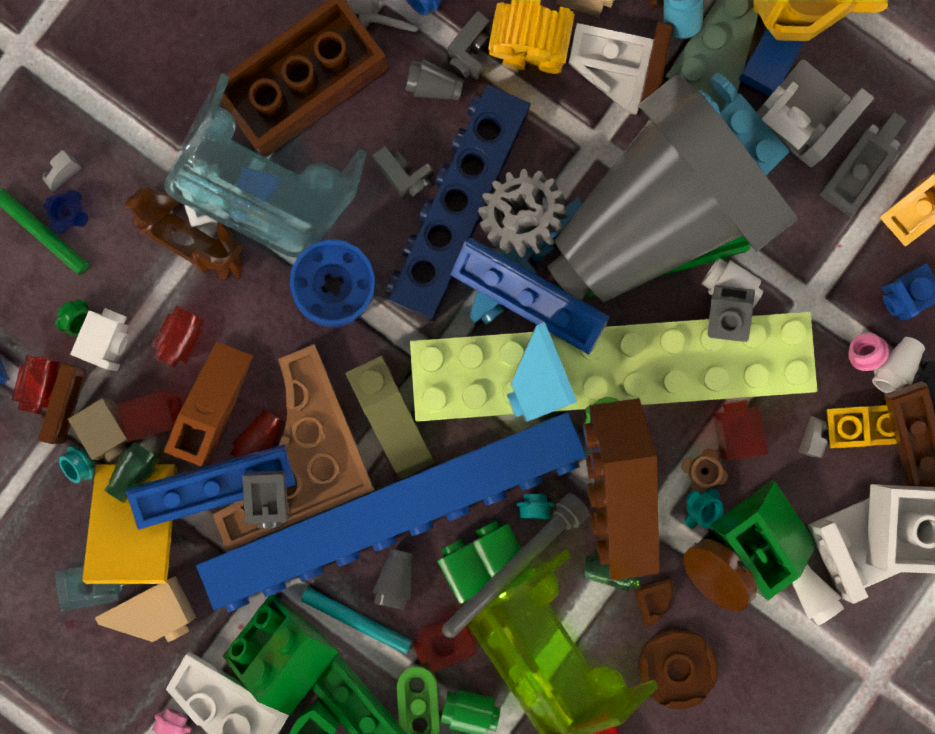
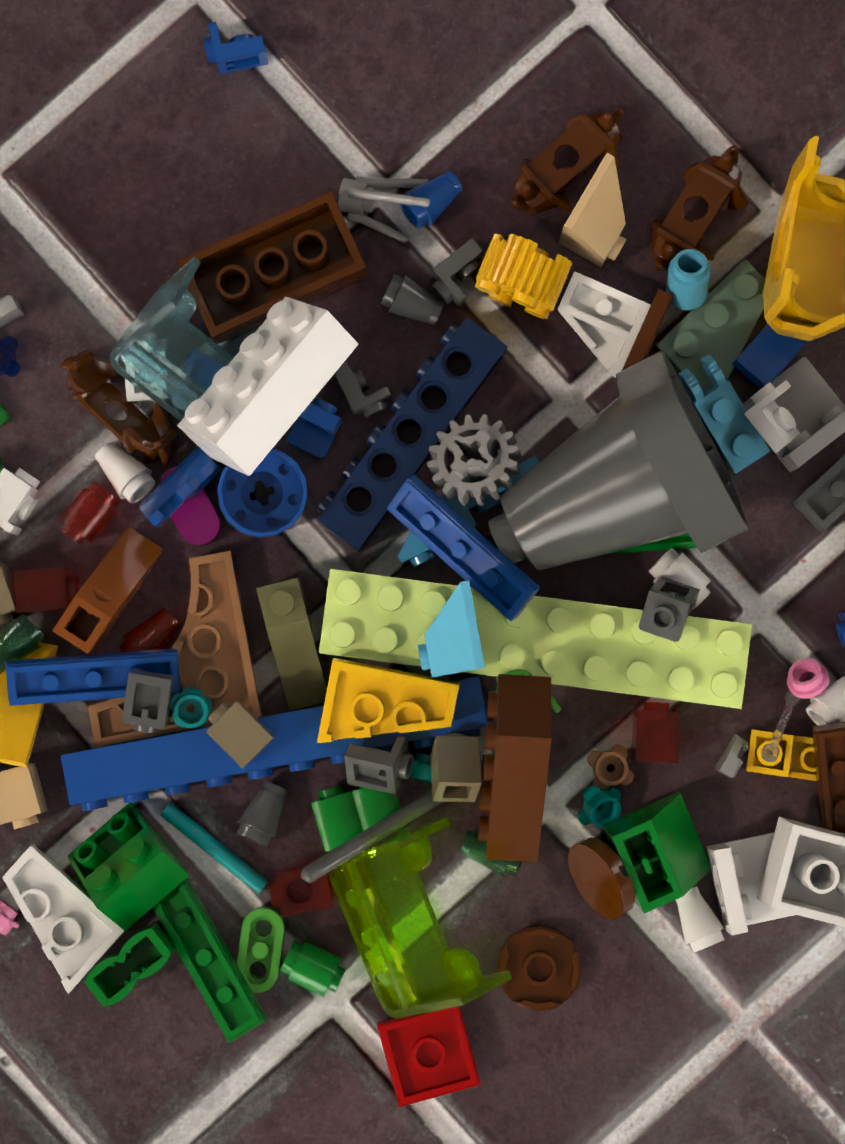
camera: 10 degrees right, 0 degrees up
(205, 294) = (127, 475): none -> white cone
(258, 289) = (181, 484): none -> blue slope
(269, 311) = (196, 518): none -> magenta tile
(307, 507) = (198, 716): none -> teal plate
(316, 180) = (267, 384): none -> white brick
(356, 510) = (239, 732): none -> dark tan brick
(369, 215) = (315, 428): none -> blue bracket
(485, 452) = (383, 700): none -> yellow wing
(493, 517) = (377, 768): none -> dark grey bracket
(565, 501) = (455, 768): none -> dark tan brick
(654, 600) = (529, 891): reddish brown tile -> none
(852, 425) = (771, 750): none -> clear hinge

